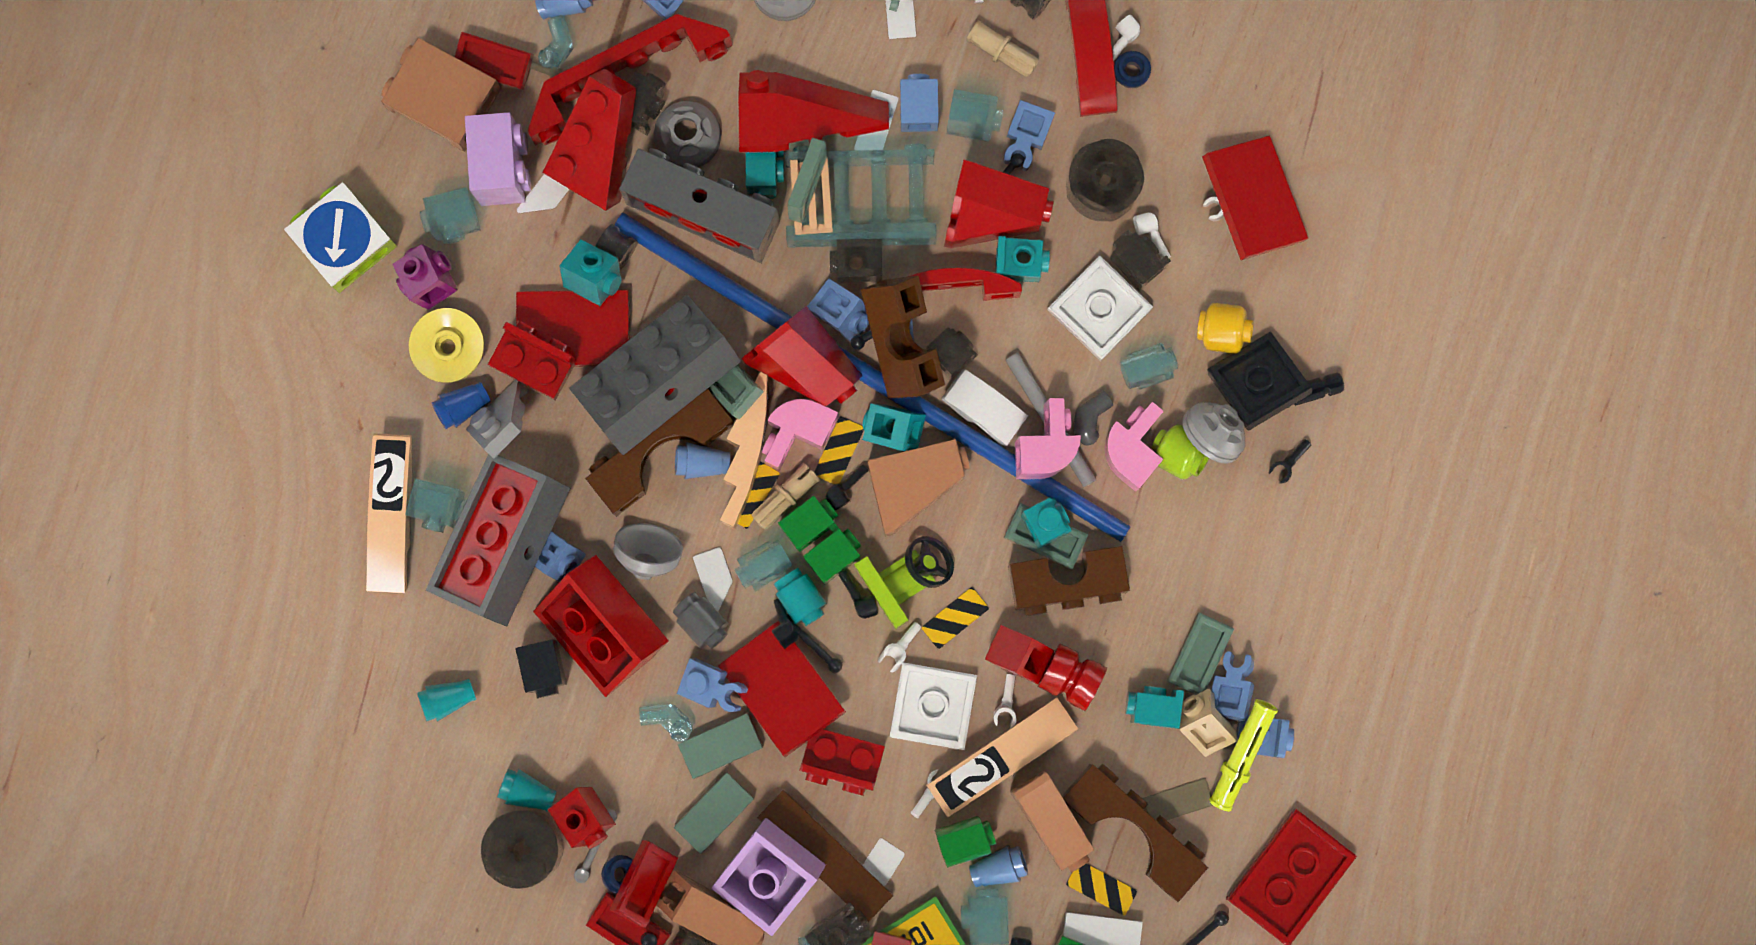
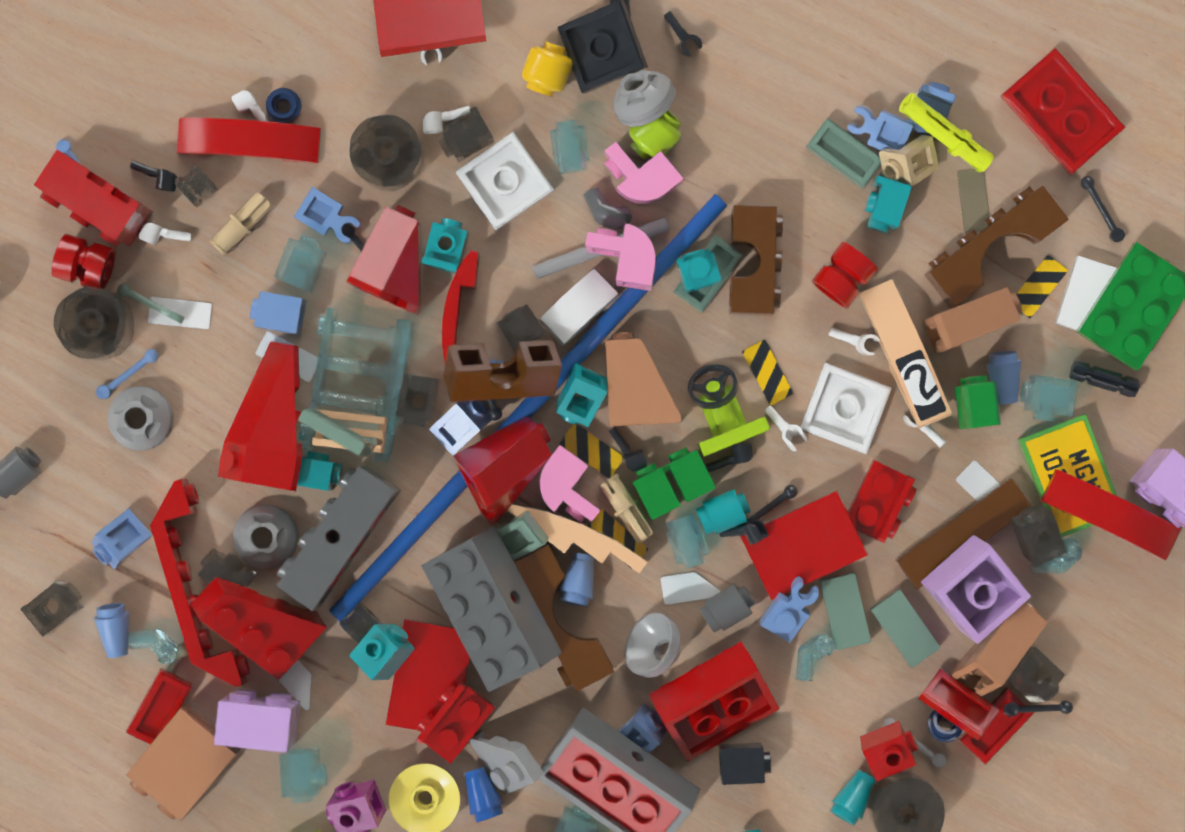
camera: 75 degrees left, 5 degrees up
(1019, 654) = (815, 320): red brick -> none

